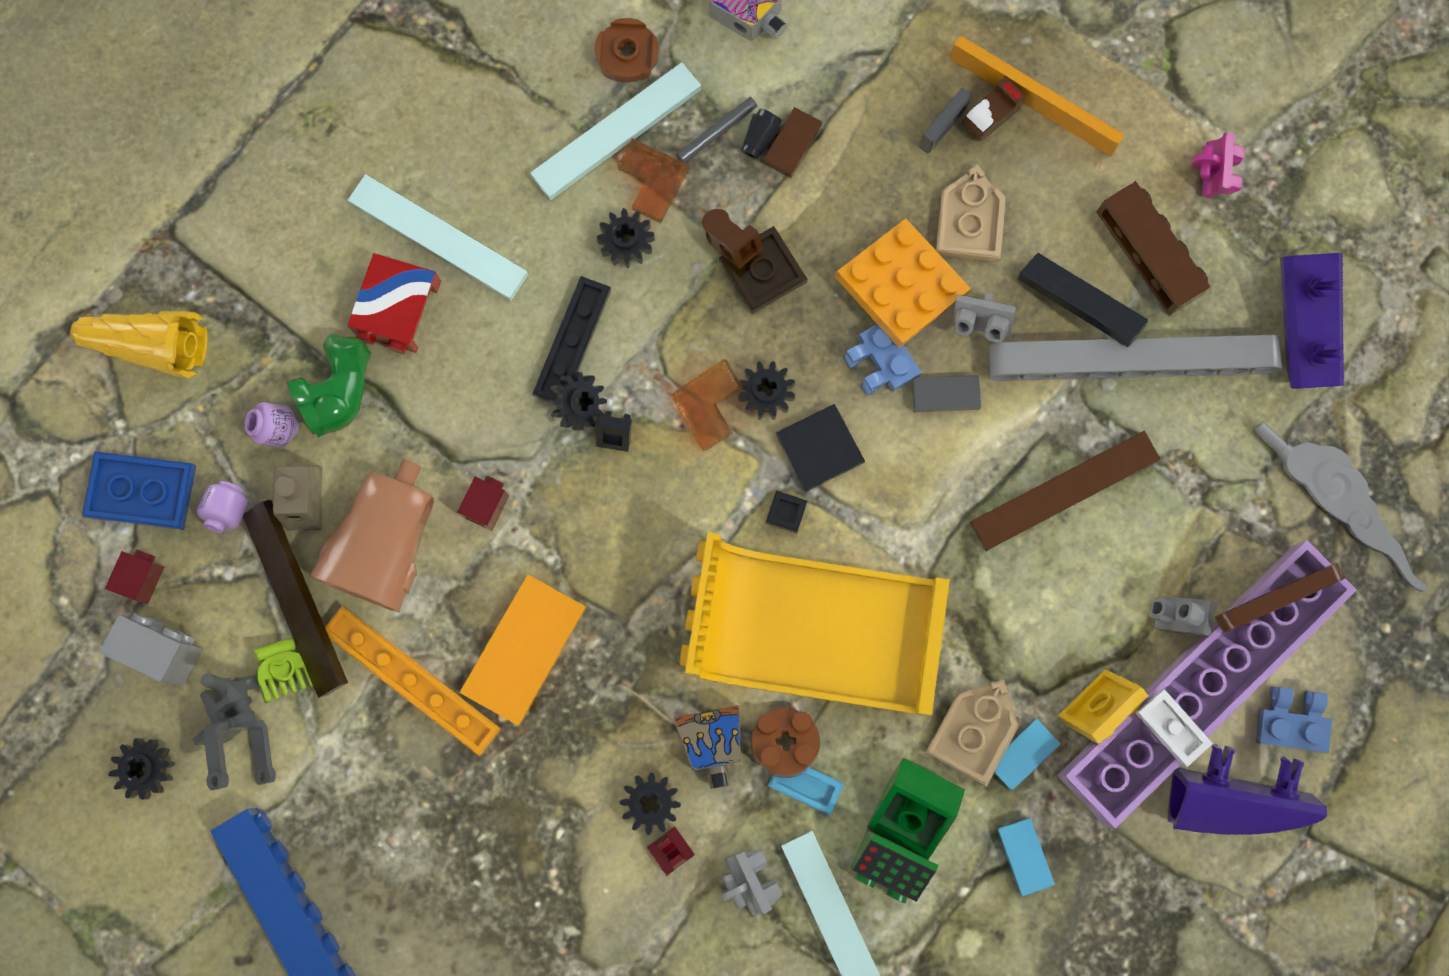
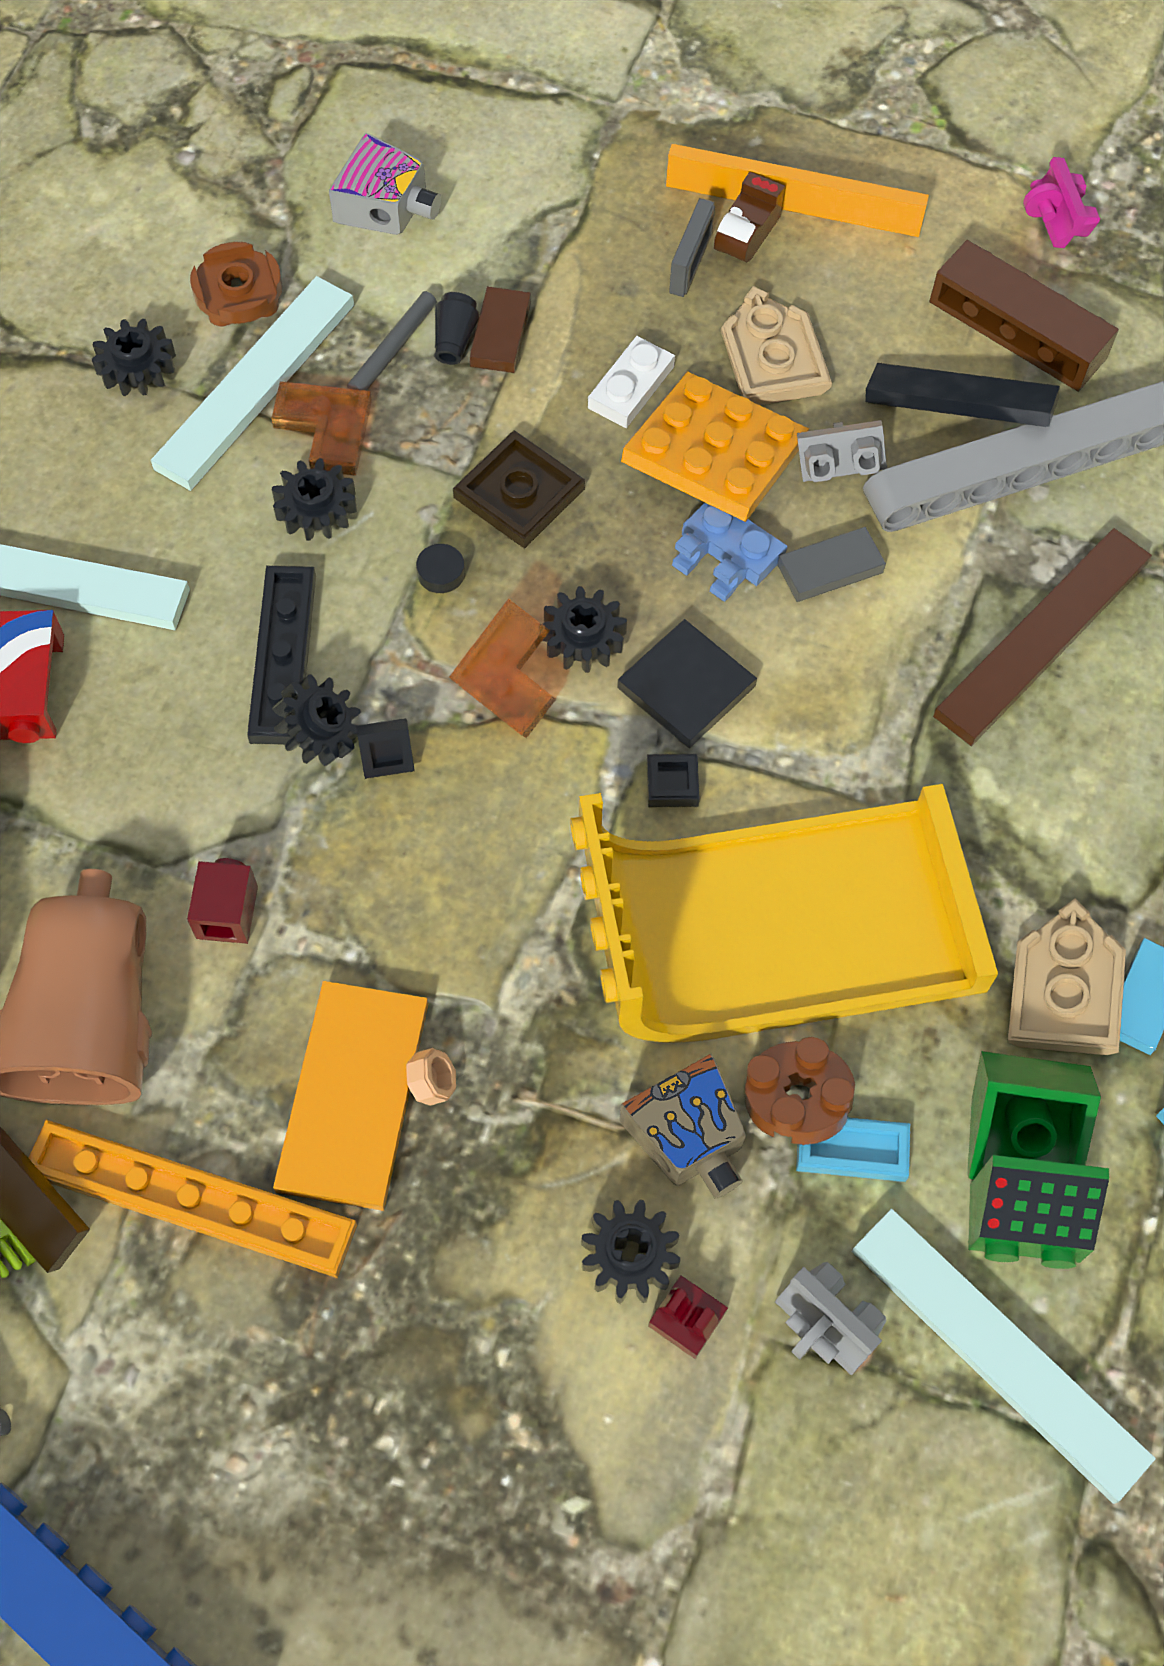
camera: 20 degrees left, 15 degrees down
(543, 99) = (133, 357): none -> black gear
(571, 657) = (431, 1076): none -> light nougat tile
(691, 313) = (440, 568): none -> black tile
(730, 240) = (462, 455): reddish brown leg -> none
(866, 211) = (631, 382): none -> white plate

